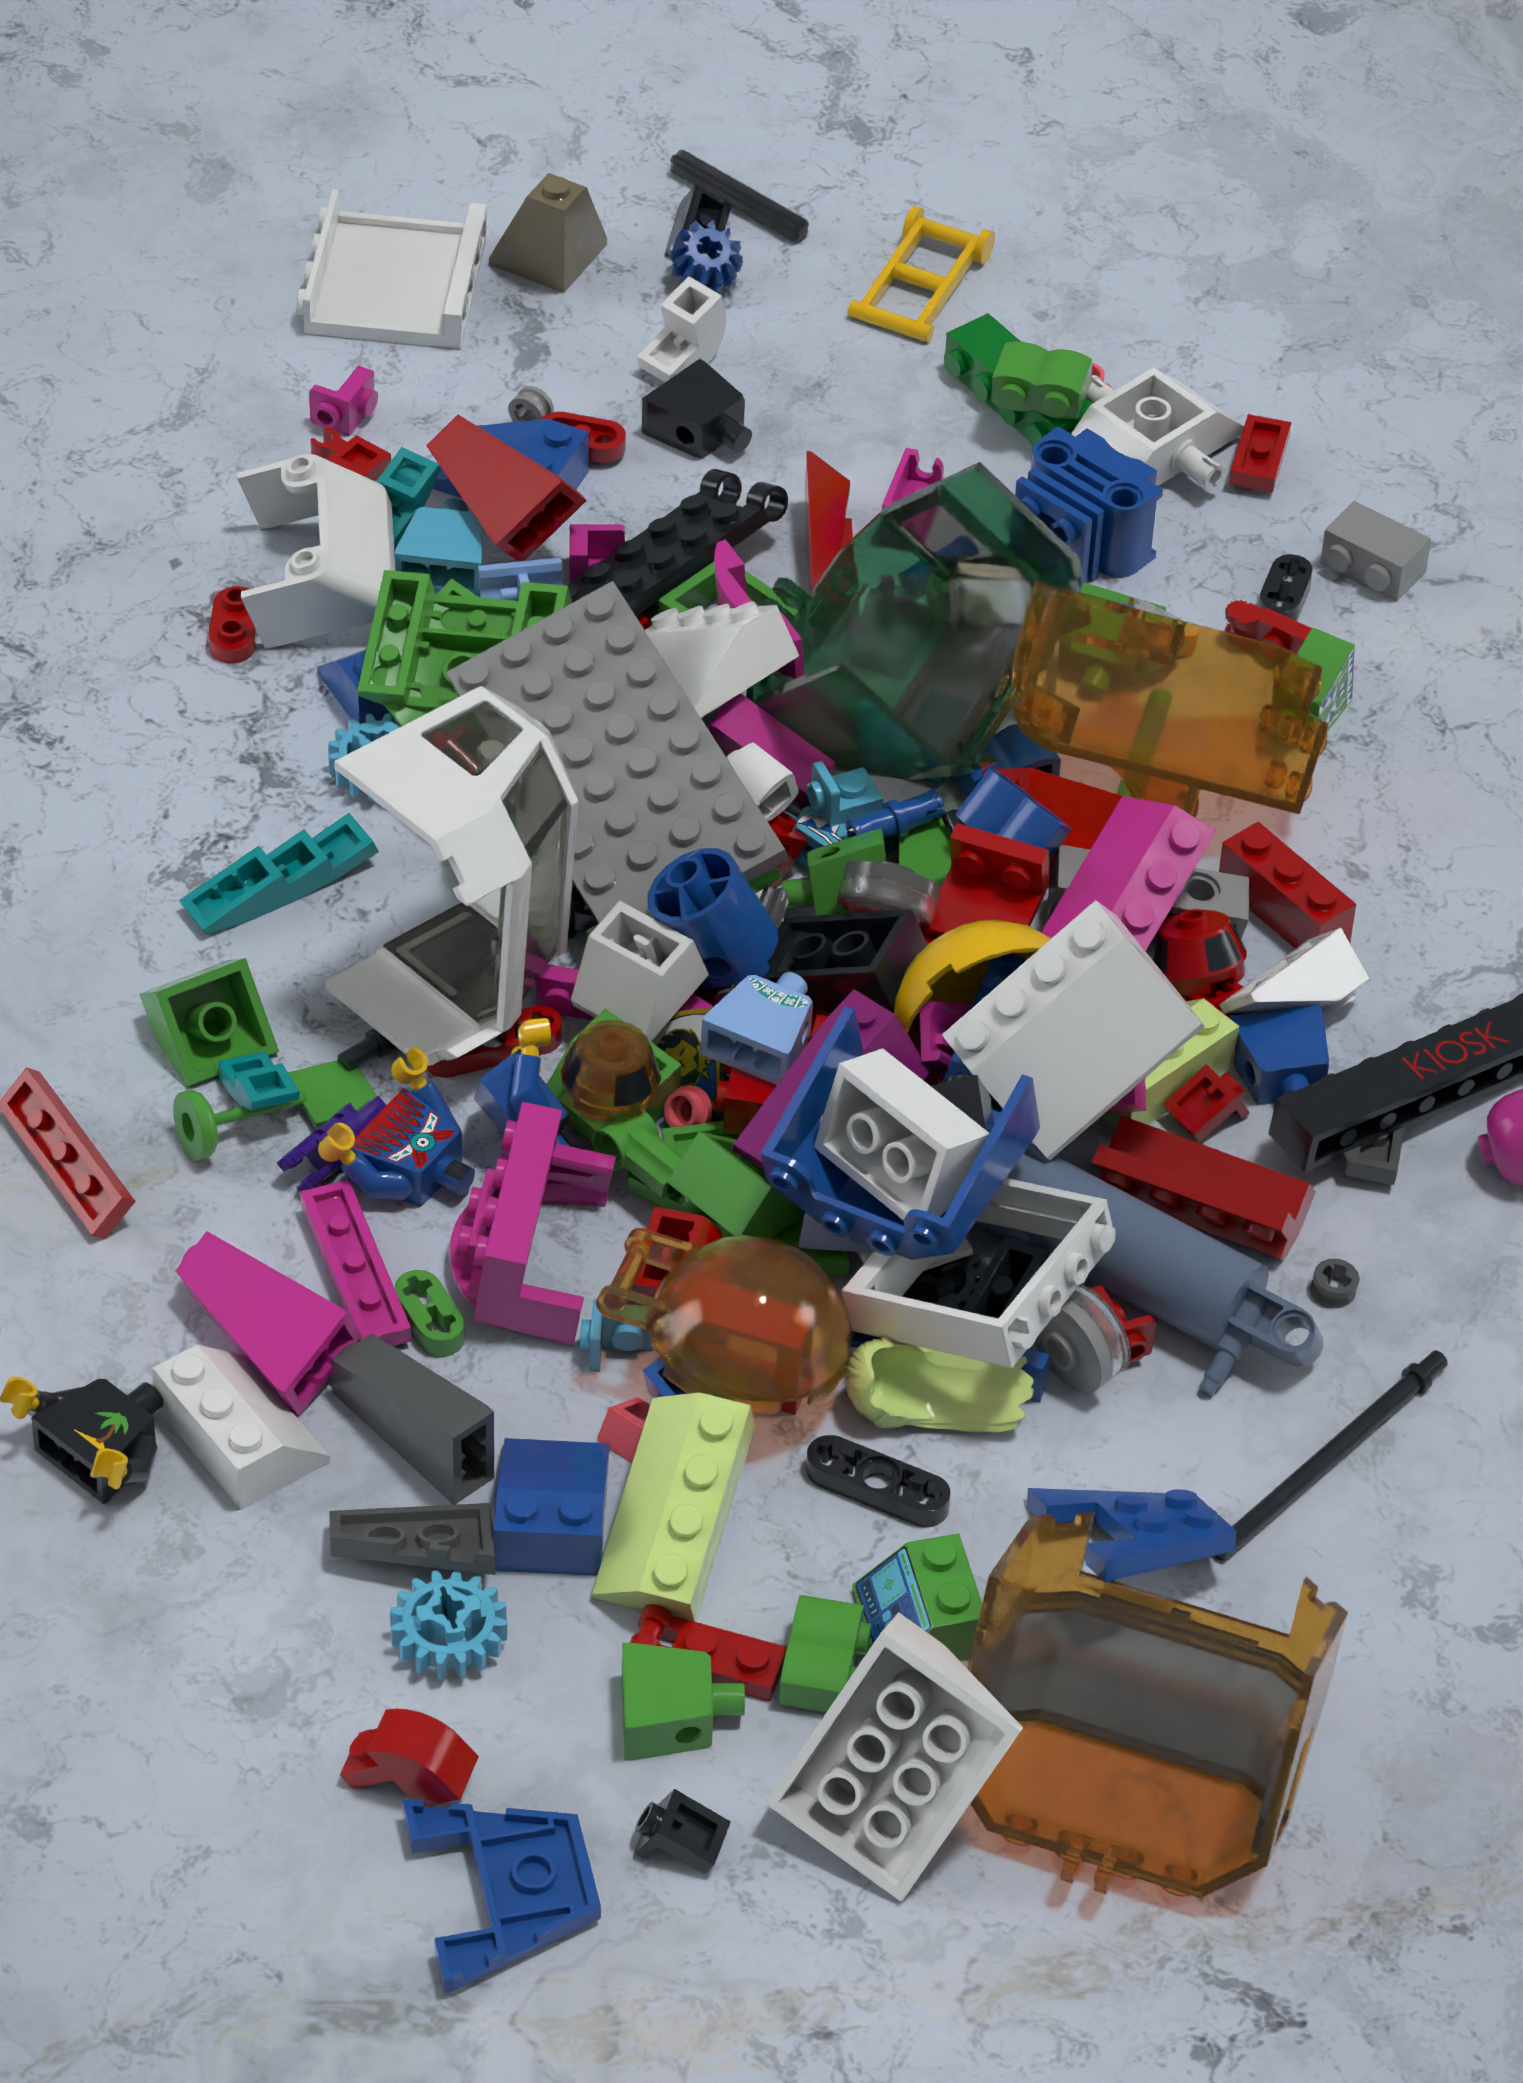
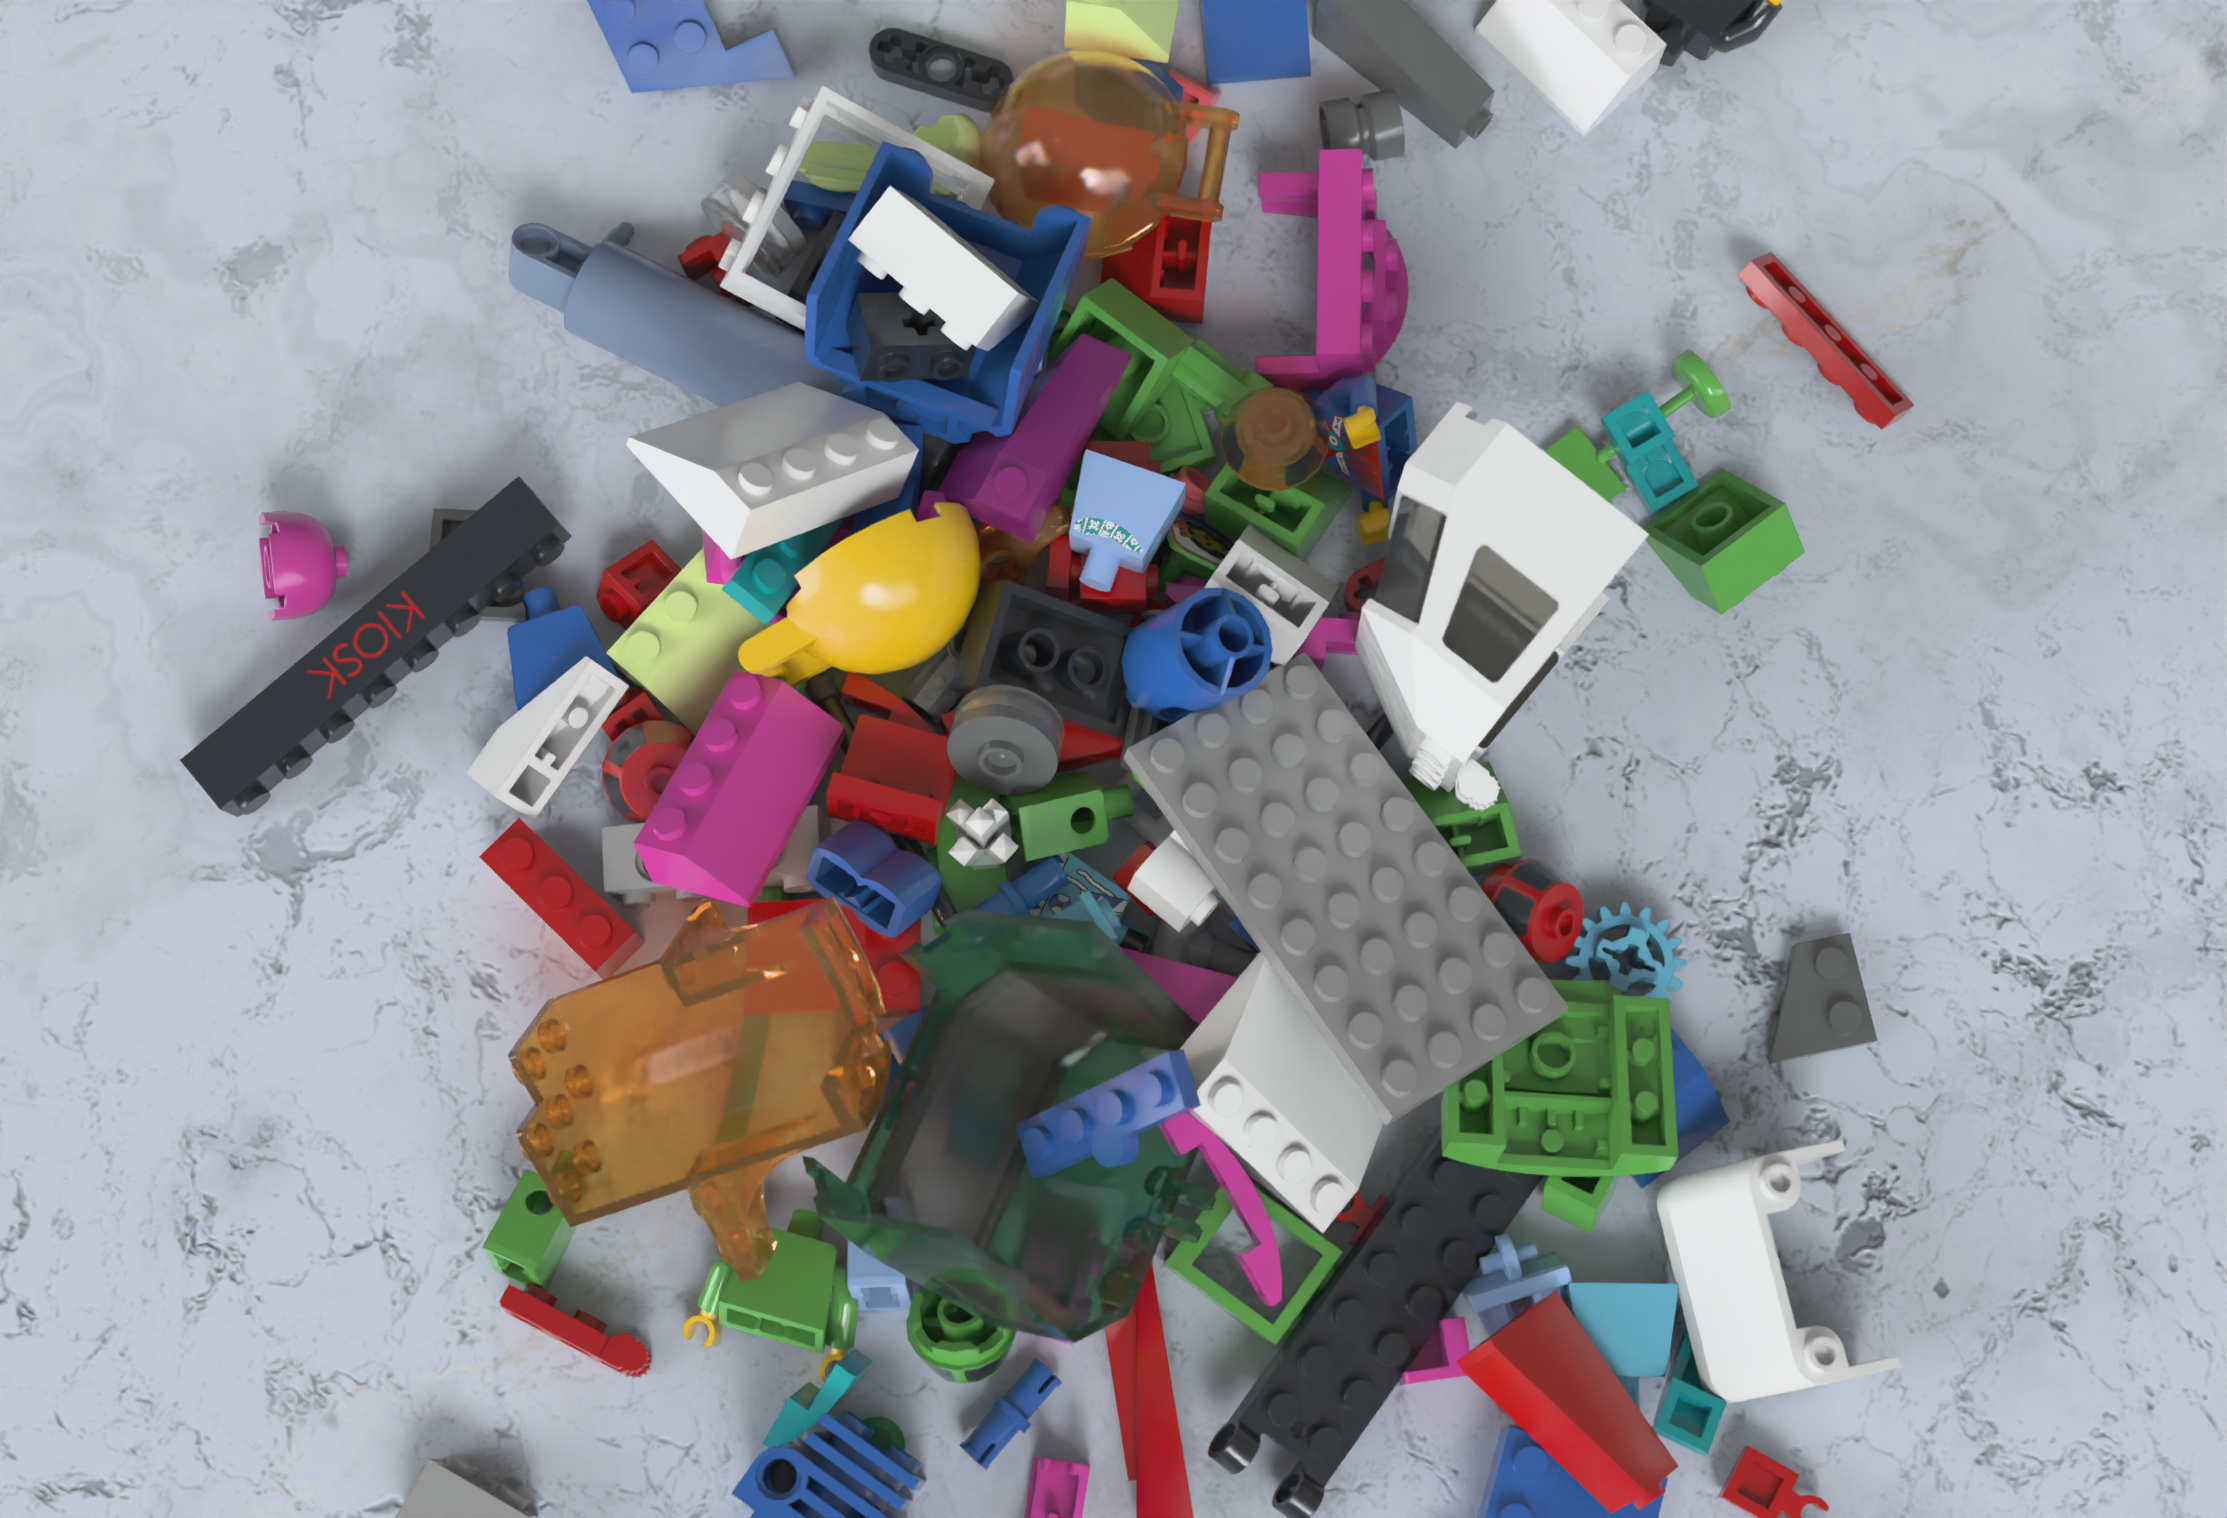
camera: 175 degrees right, 30 degrees up
(218, 726) = (1822, 1002): none -> dark grey wing
(231, 628) = (1841, 1177): red plate -> none
(268, 1318) = (1574, 150): dark pink slope -> none
(271, 881) = (1695, 769): teal slope -> none
(308, 1147) = (1557, 389): dark purple hinge -> none
(355, 1262) = (1498, 245): dark pink plate -> none
(407, 1146) = (1480, 371): torso -> none
(438, 1309) = (1421, 199): bright green beam -> none
(451, 1348) = (1371, 125): none -> dark grey wheel
(609, 1333) = (1233, 195): medium azure bracket -> none
(835, 641) = (1109, 1116): none -> blue hinge
(918, 838) = (981, 835): none -> white rock
(1105, 564) = (810, 1402): none -> teal slope
(1206, 1187) = (583, 439): red brick -> none
(1292, 592) = (565, 1436): black beam -> none
(1331, 1296) = (508, 391): dark grey bush -> none
(1414, 1379) = (417, 267): black bar -> none

